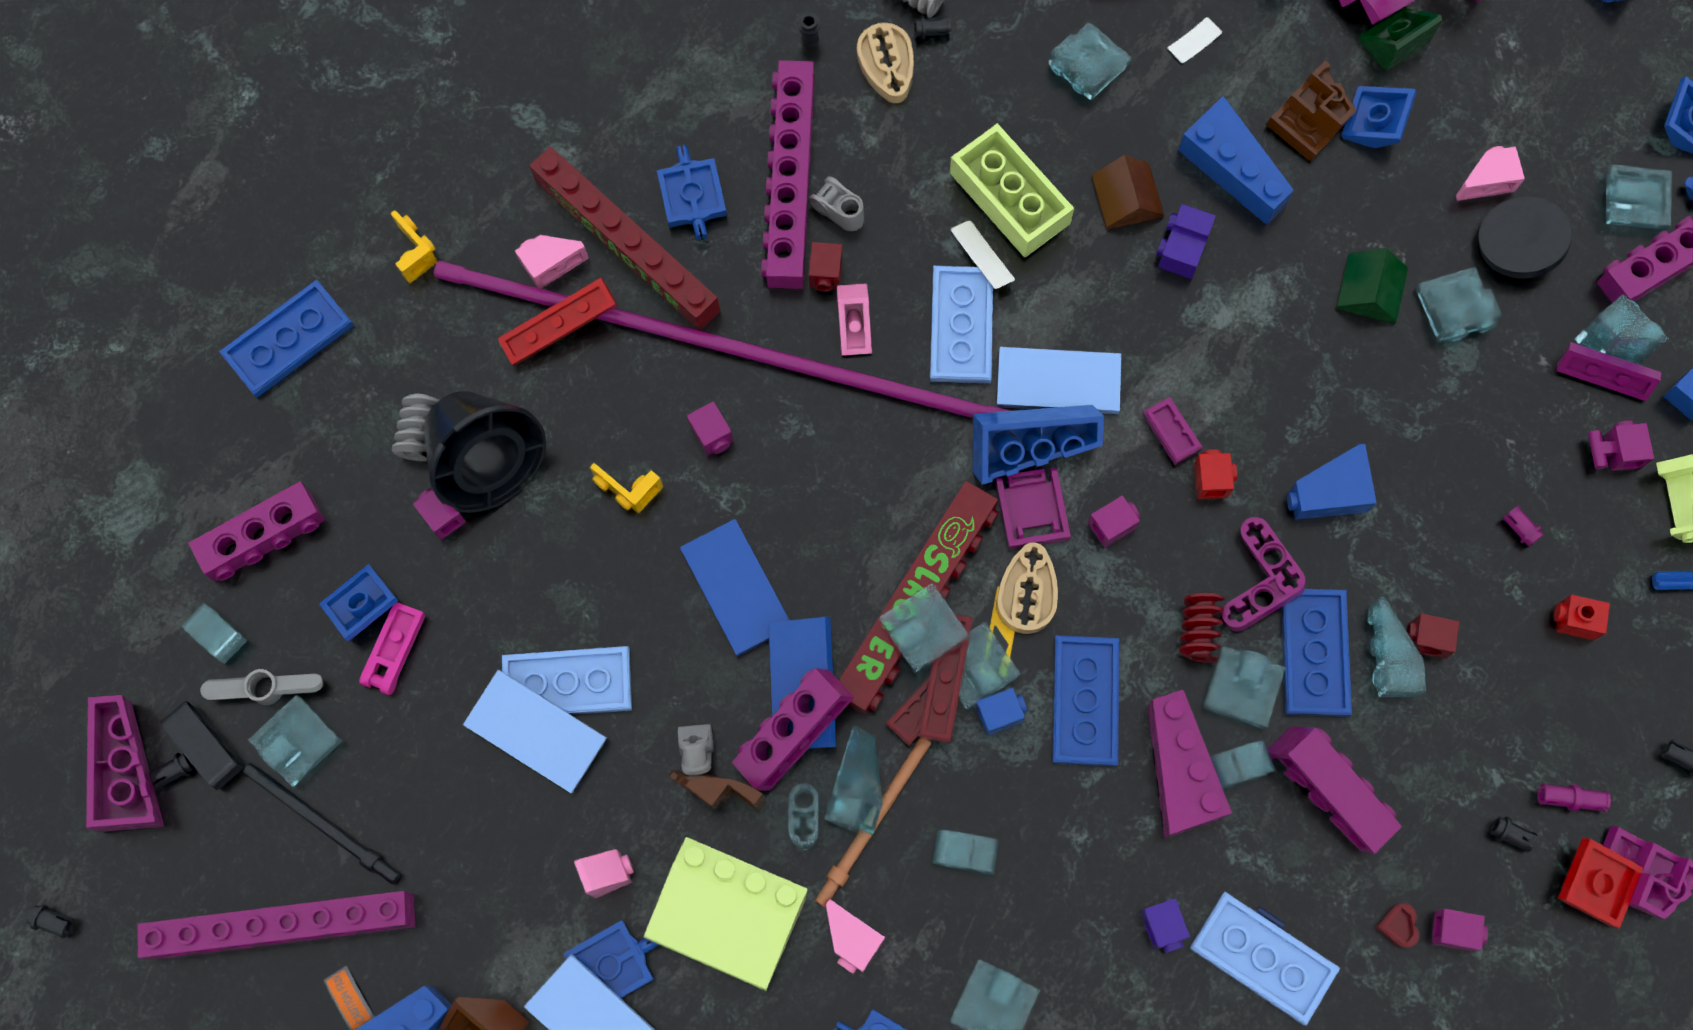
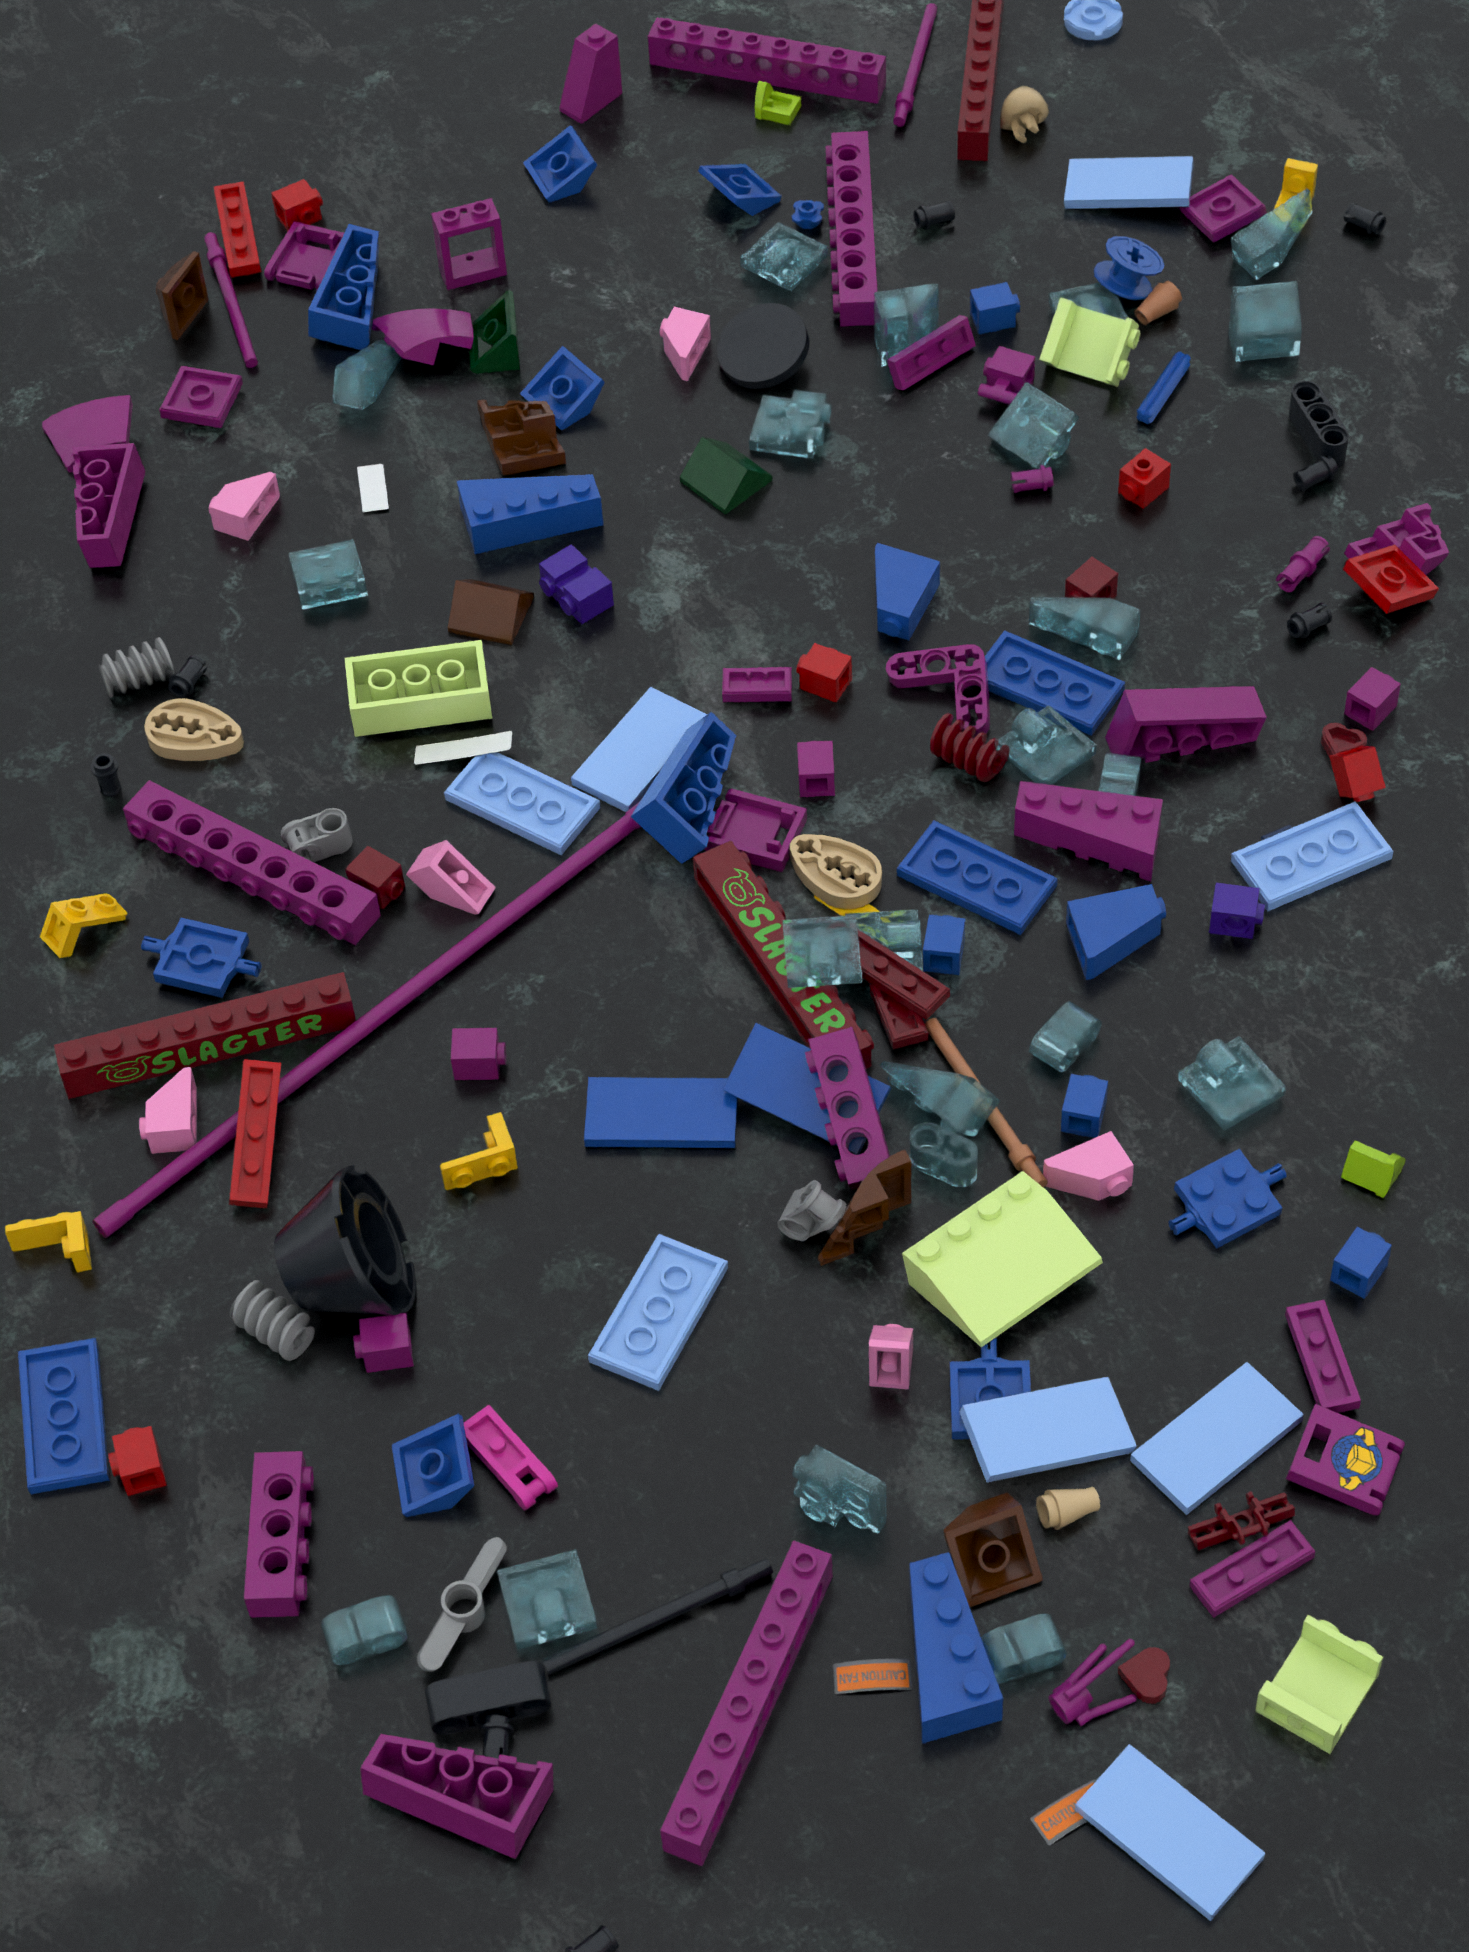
camera: 60 degrees left, 20 degrees down
(270, 407) = (137, 1460): none -> red brick
(464, 890) = (836, 1488): none -> clear light blue plate
(535, 731) = (694, 1355): light blue tile -> none
(681, 93) = (69, 916): none -> yellow bracket
(908, 900) = (1084, 1105): none -> blue brick
(1093, 834) = (1113, 926): none -> blue slope
(1365, 957) = (1357, 773): none -> red brick
(1578, 499) = (1034, 427): none -> clear light blue plate

